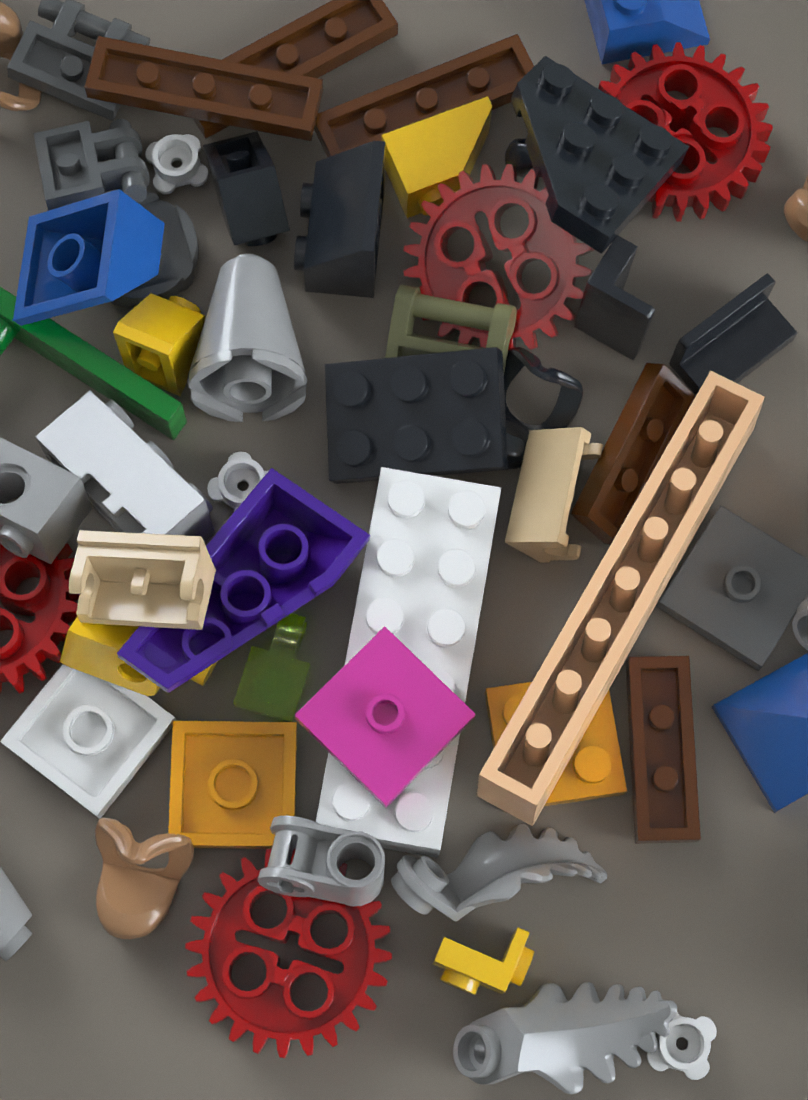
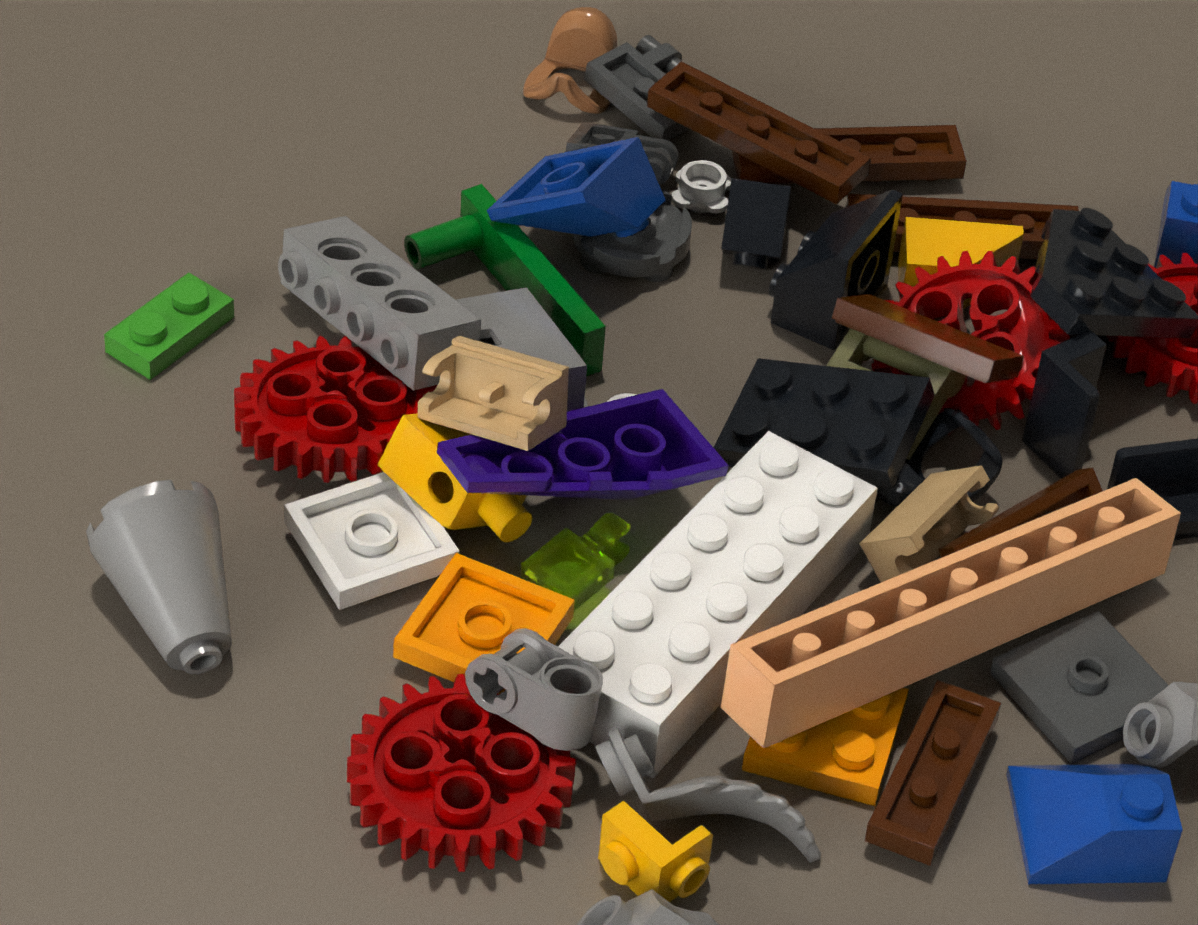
camera: 25 degrees right, 30 degrees down
(134, 897) = (329, 679): medium nougat piece -> none
(160, 340) = (615, 284): yellow slope -> none
(247, 346) = (686, 323): light grey cone -> none
(385, 716) = (664, 591): dark pink plate -> none
(472, 293) = (927, 338): none -> reddish brown tile

